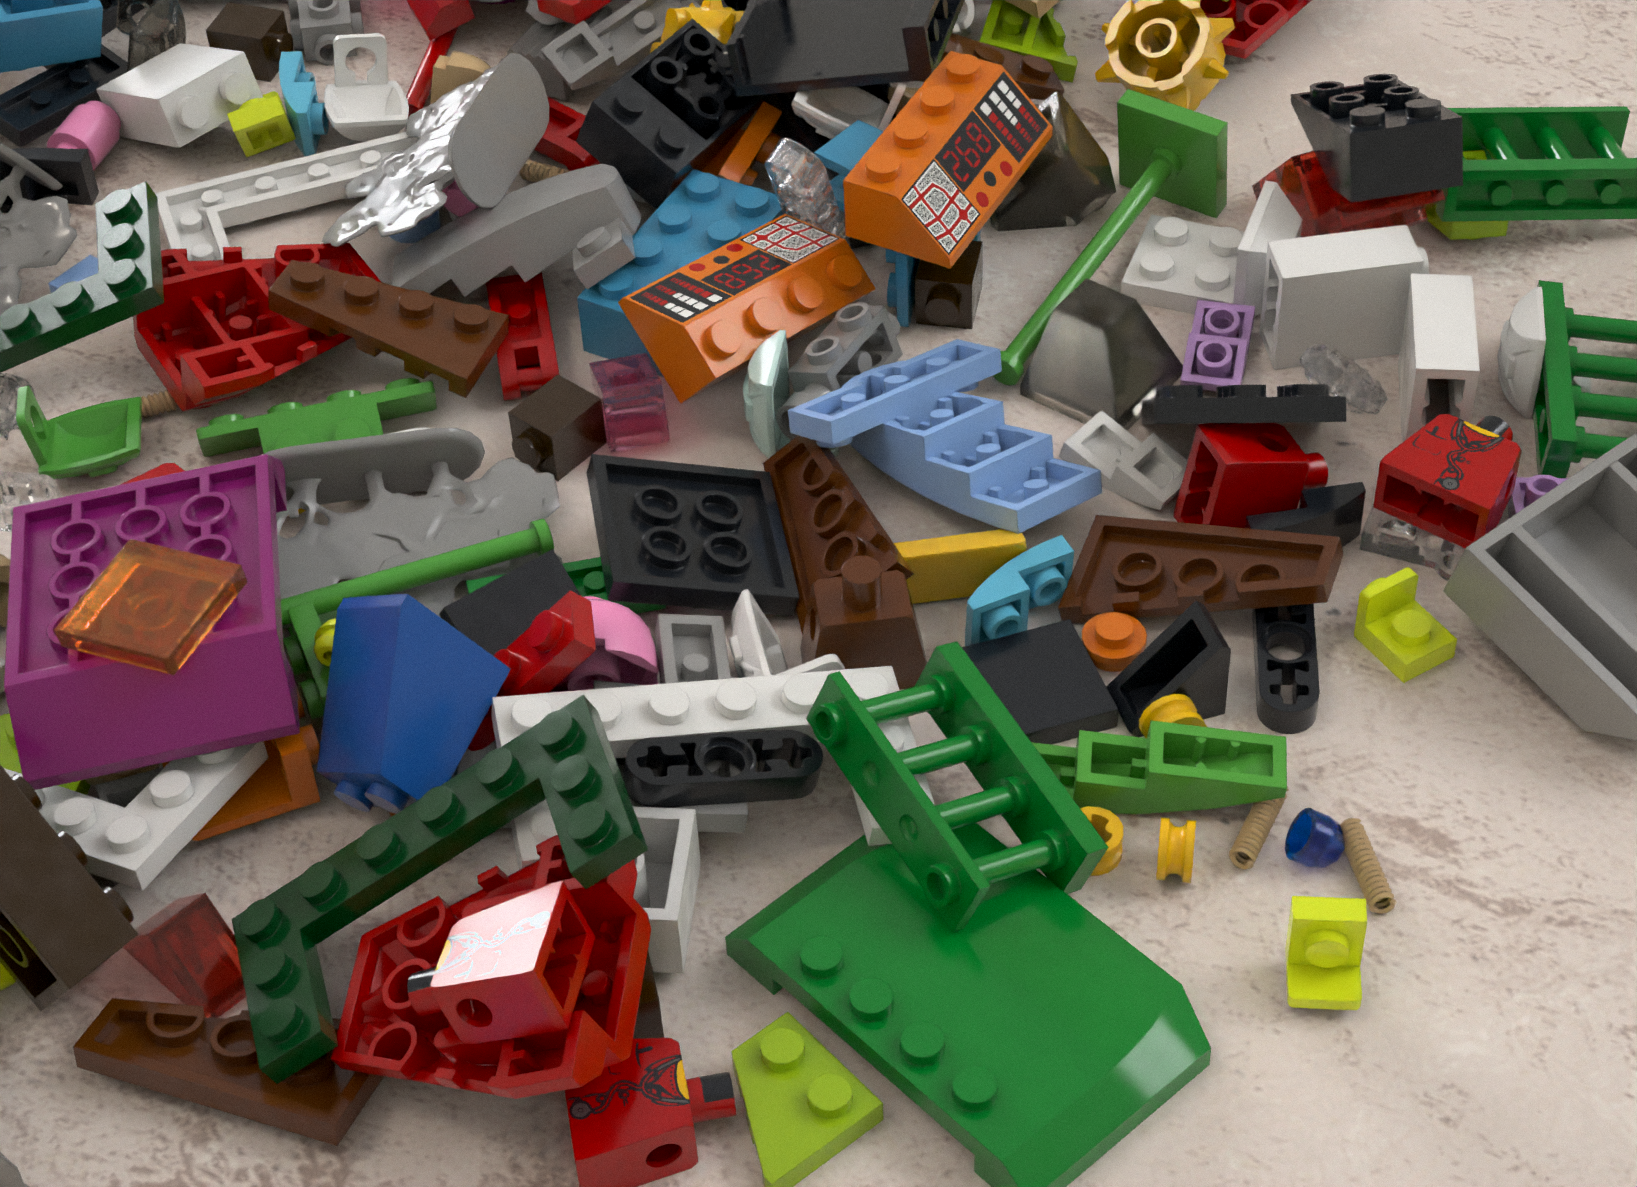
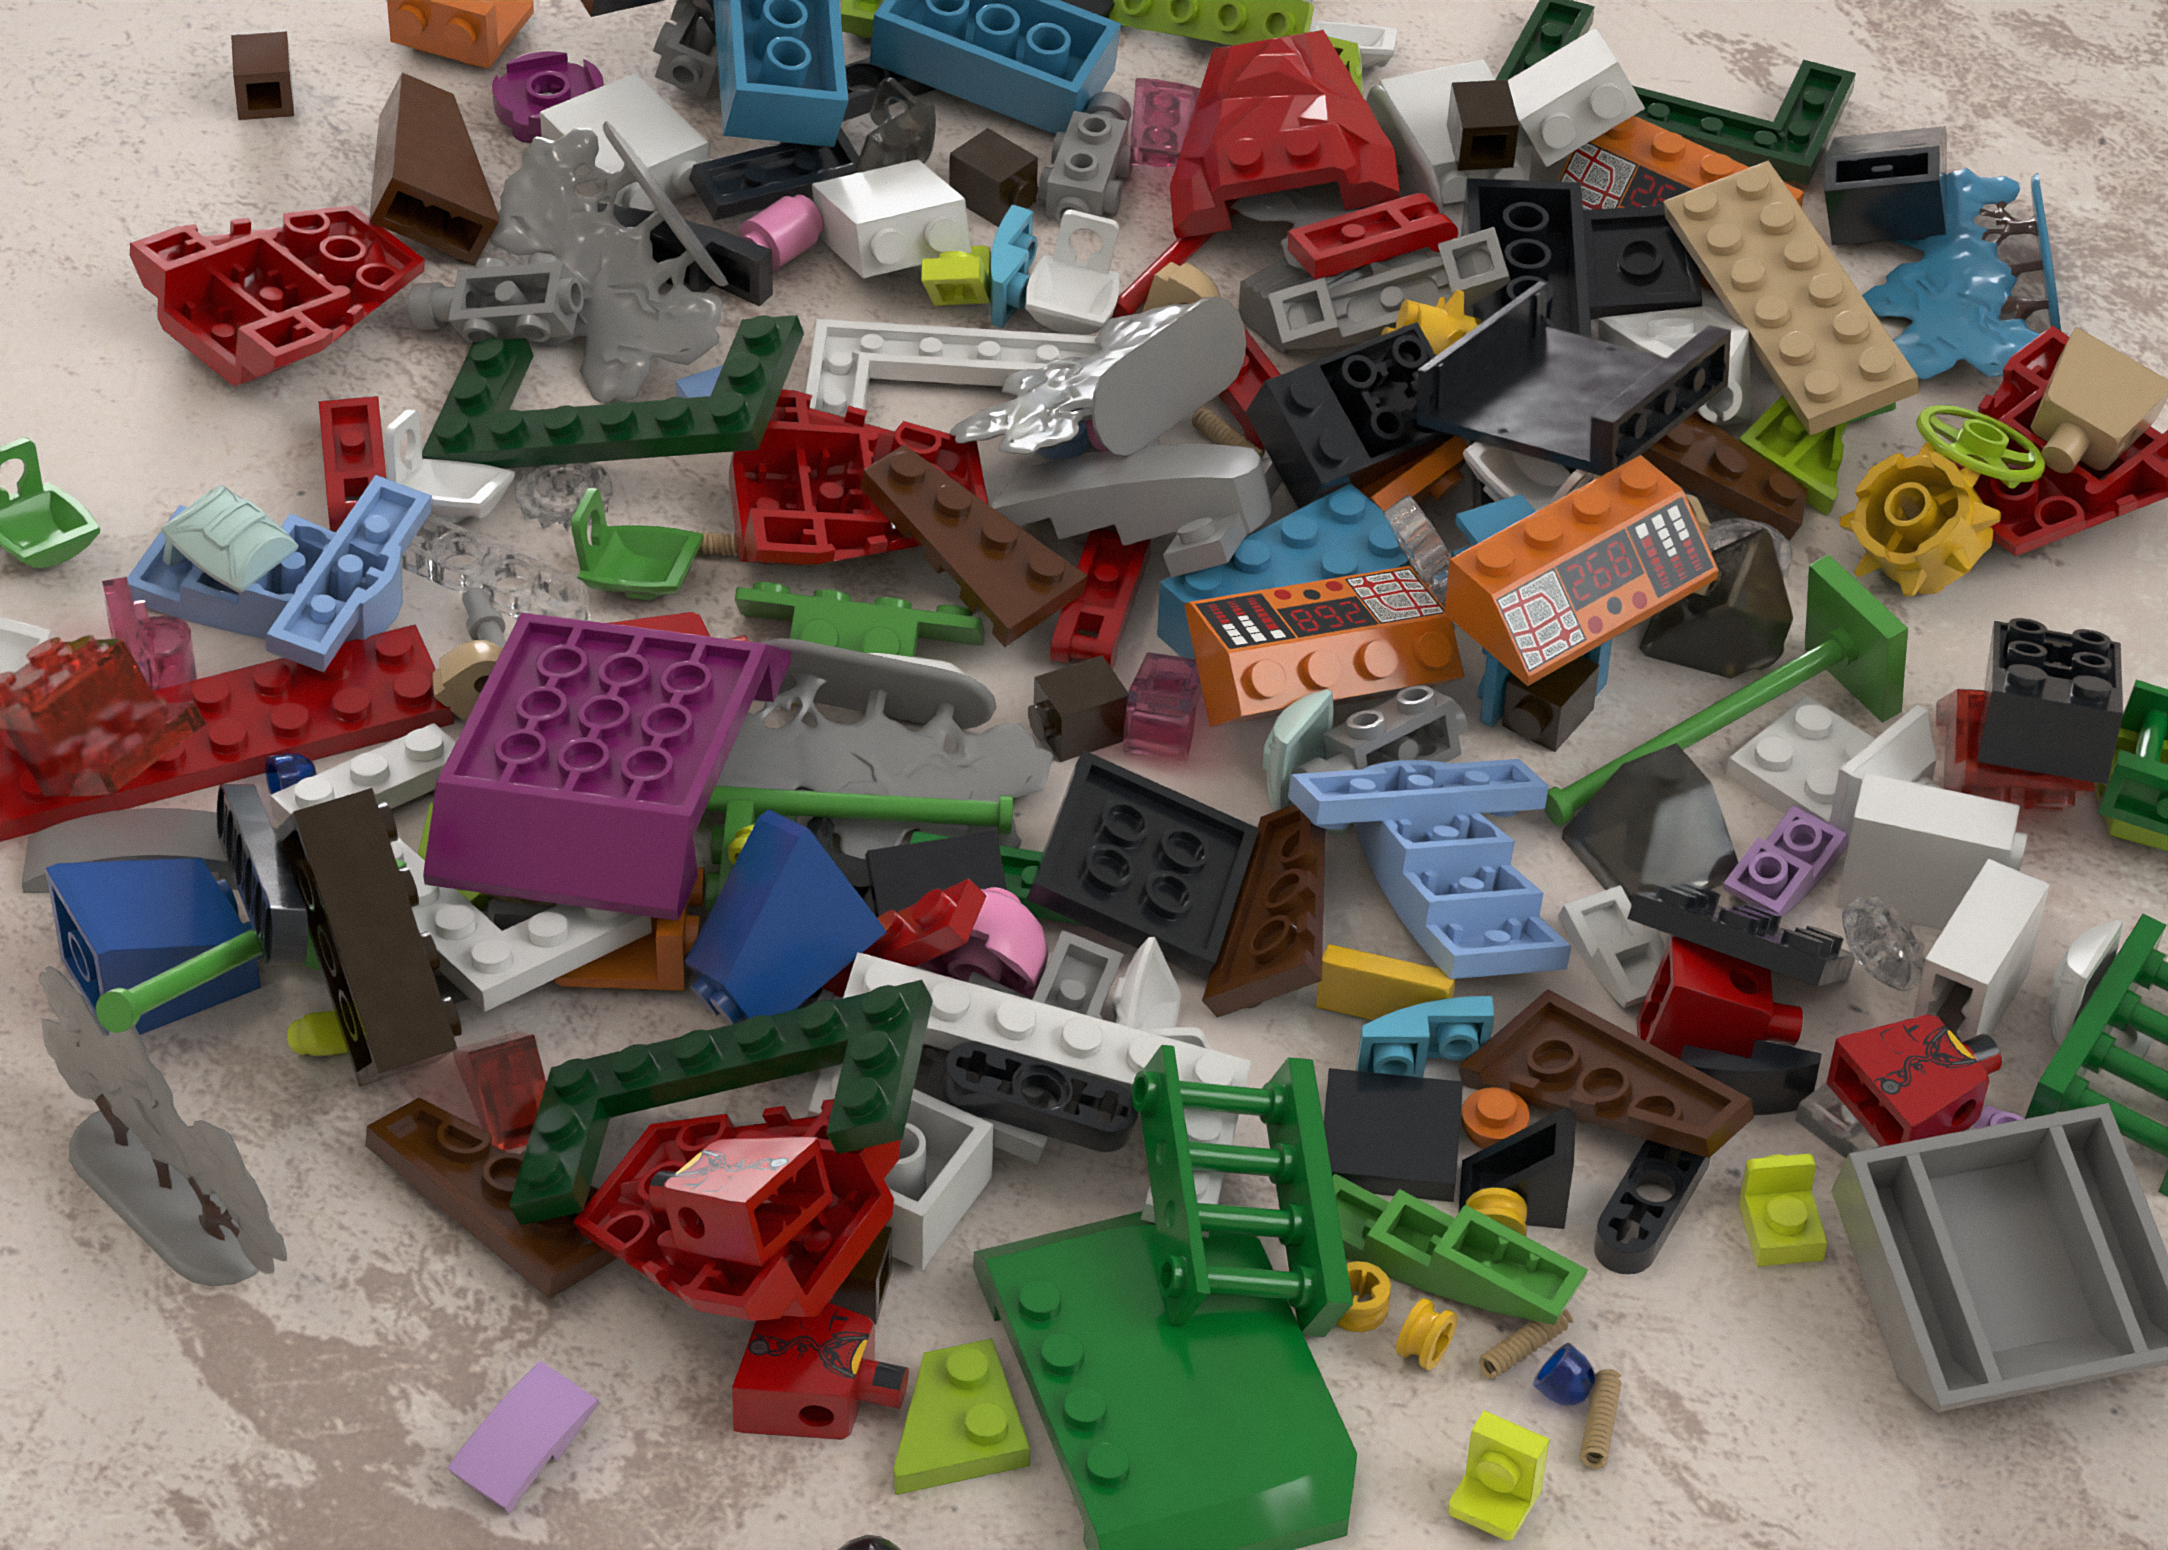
camera: 20 degrees right, 0 degrees up
(151, 606) = (592, 754): clear orange tile -> none
(865, 621) = (1257, 1011): reddish brown torso -> none

